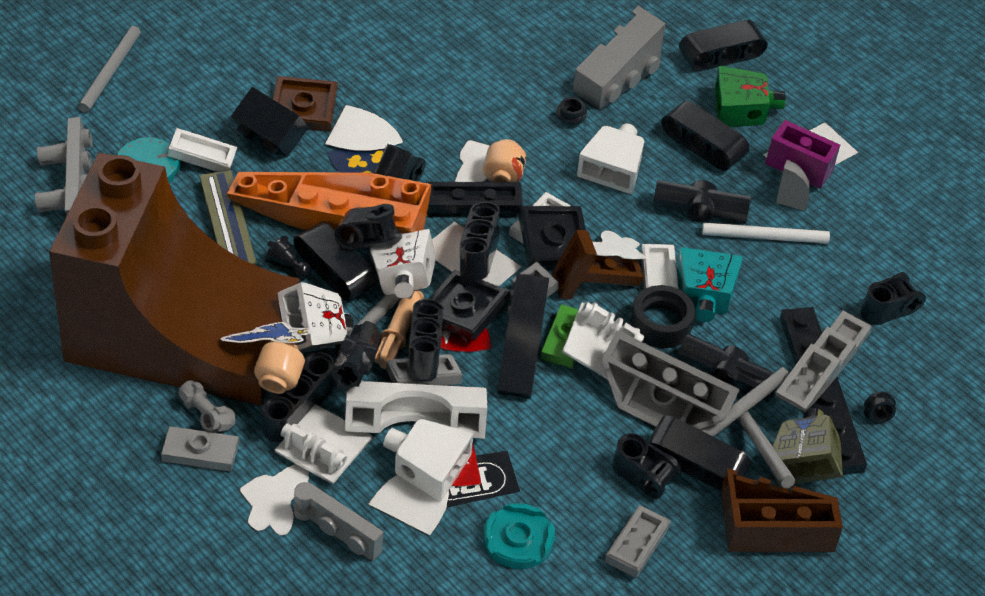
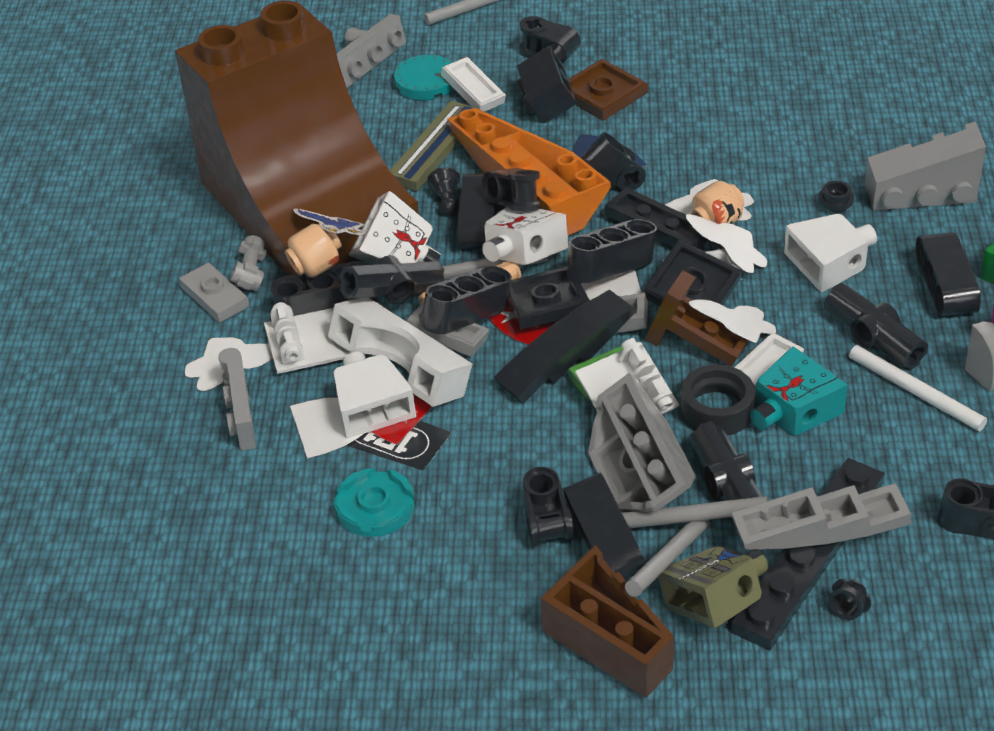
camera: 50 degrees right, 5 degrees down
(220, 79) = (560, 38): none -> black piece
(362, 131) = (632, 129): white sticker -> none
(541, 184) = (734, 239): none -> white sticker
(637, 541) = (465, 567): light grey plate -> none

